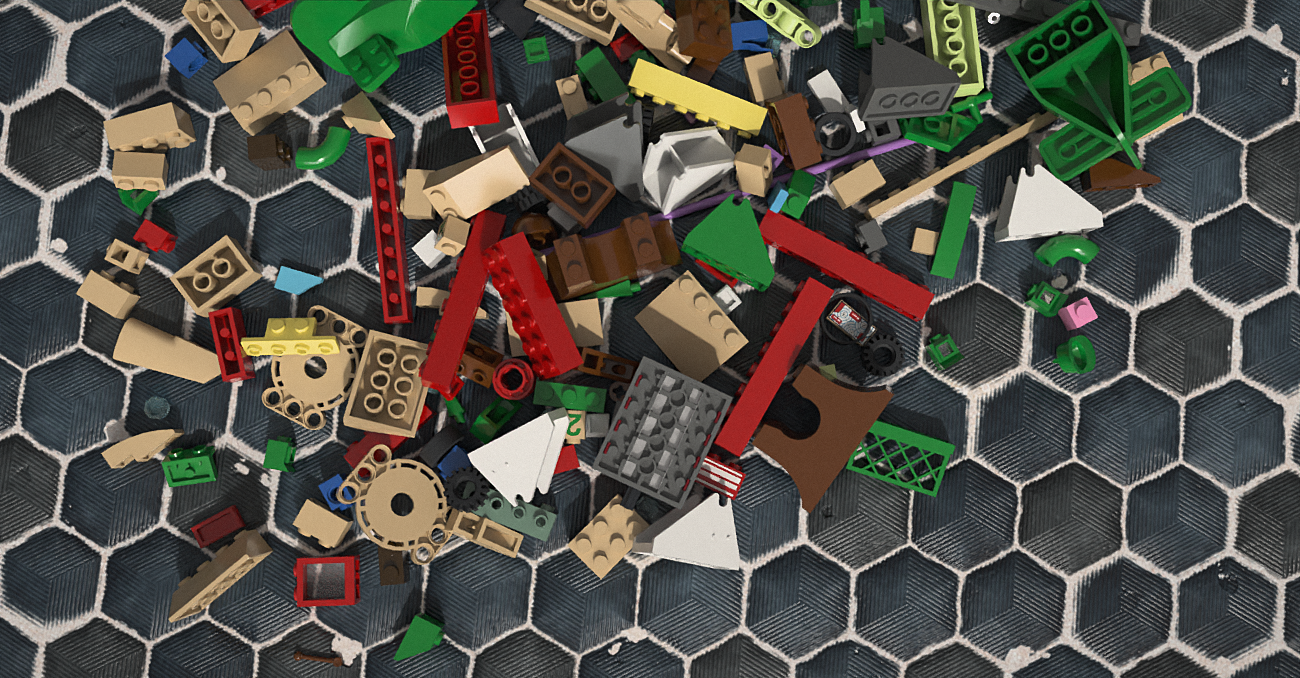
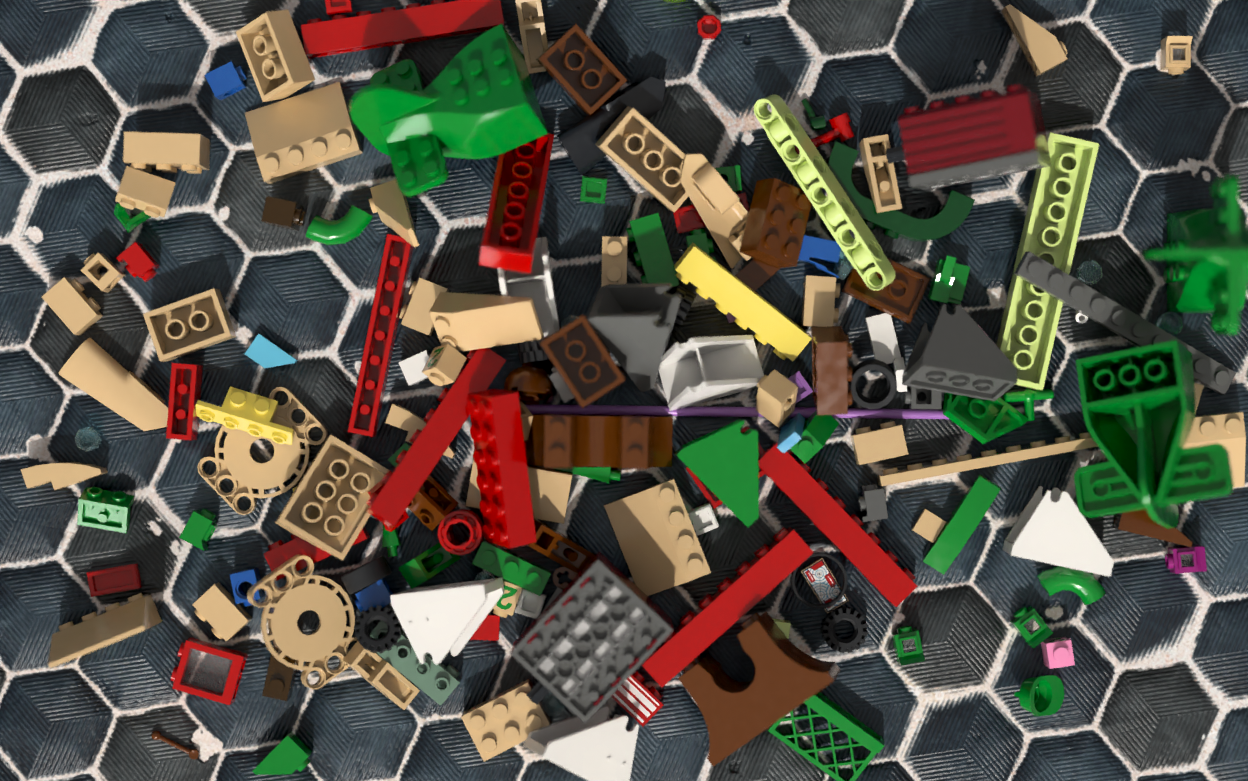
camera: 15 degrees right, 5 degrees up
(828, 55) = (896, 299): none -> reddish brown tile
(1159, 196) = (1186, 559): none -> magenta window

